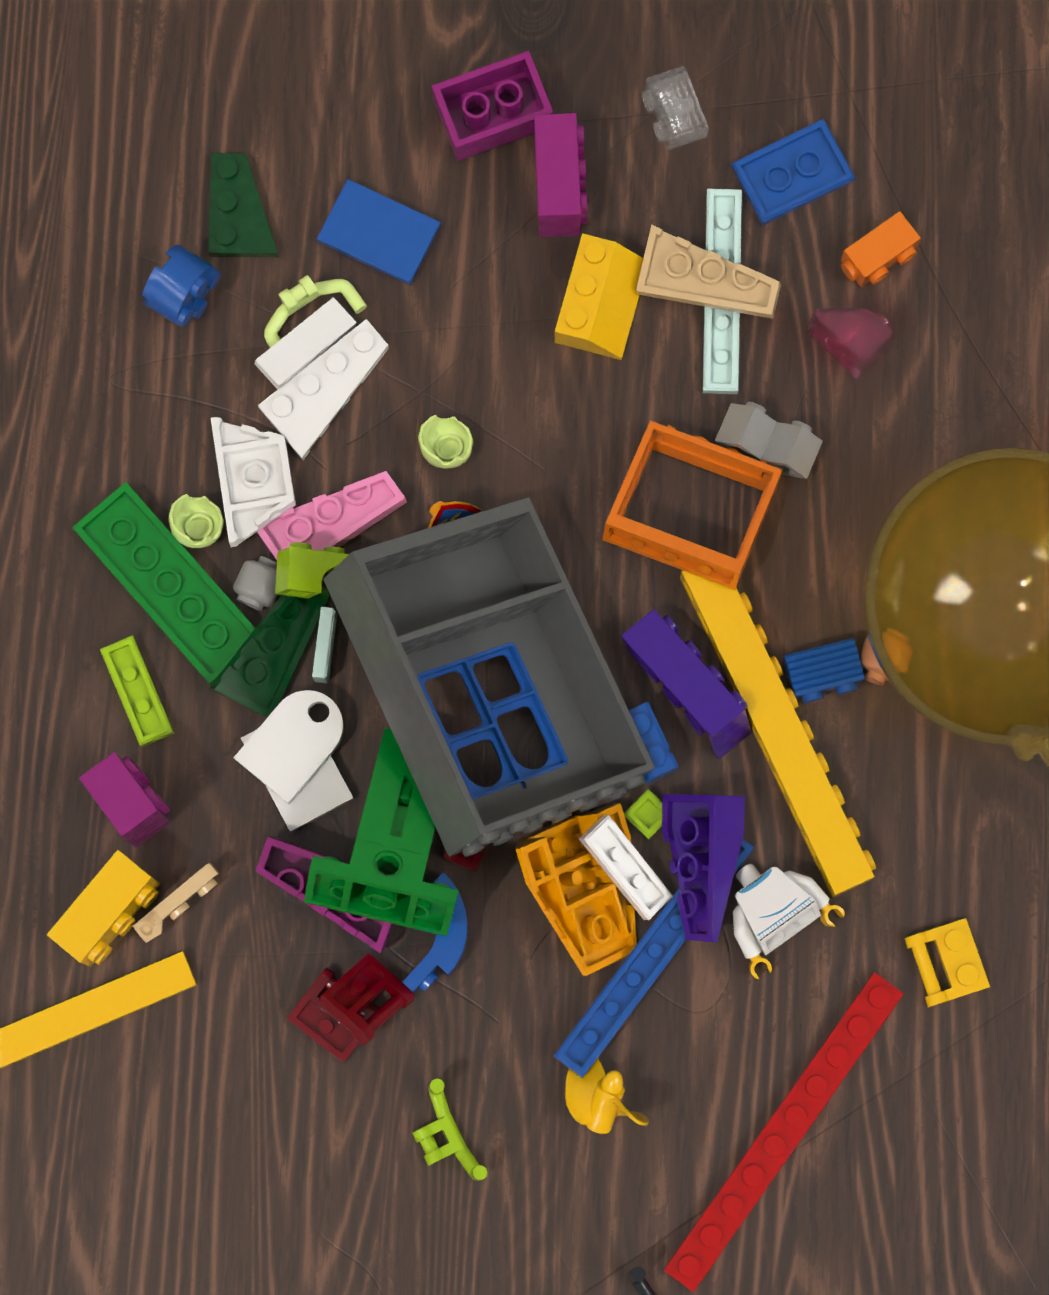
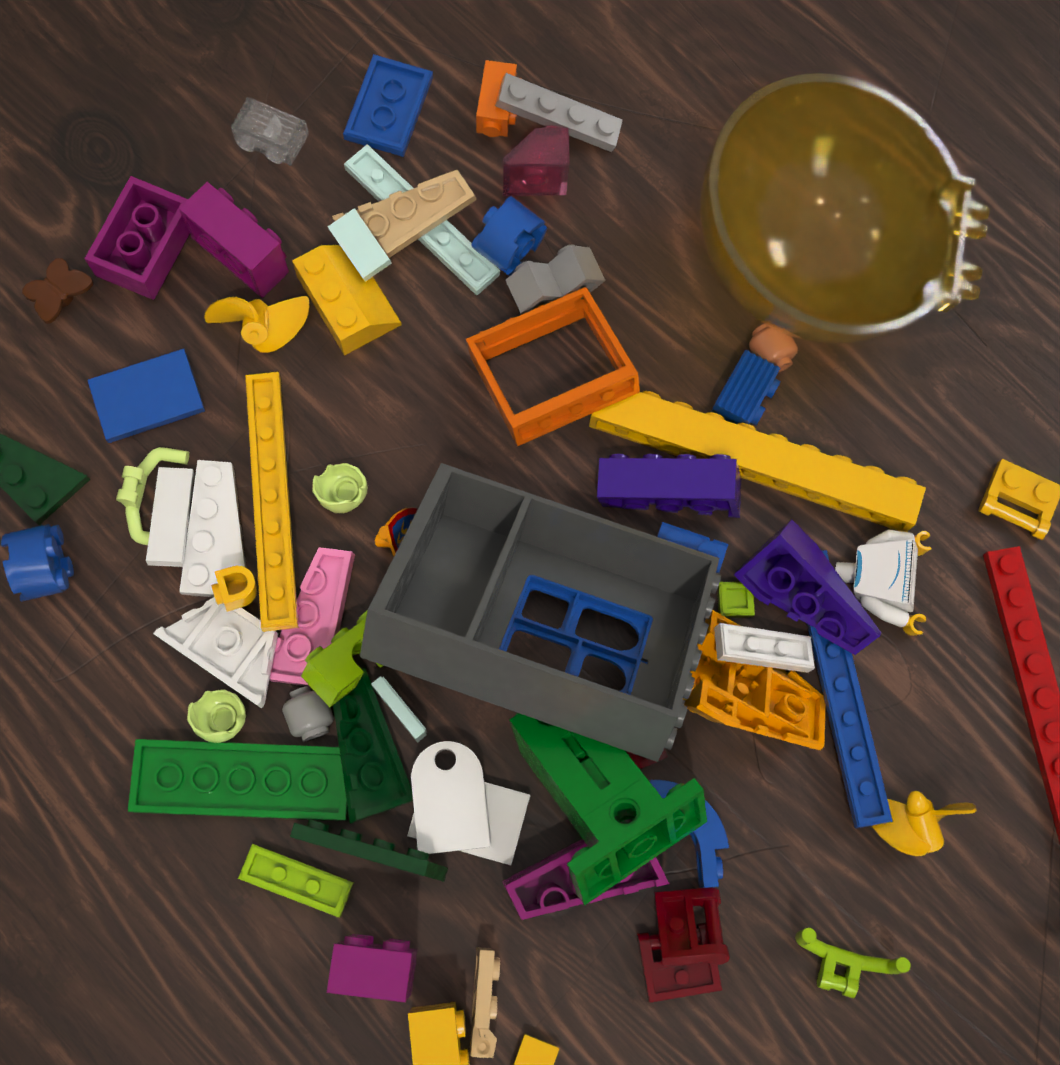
camera: 55 degrees left, 5 degrees down
(209, 728) = (380, 852): none -> dark green wing
(295, 442) = (234, 587): none -> yellow plate
(388, 401) = (271, 503): none -> yellow tile
(392, 85) = (56, 289): none -> reddish brown animal
(515, 261) = (262, 325): none -> yellow piece
(647, 268) = (359, 244): none -> light aqua tile
(768, 372) = (509, 235): none -> blue brick
(914, 309) = (557, 110): none -> light grey plate

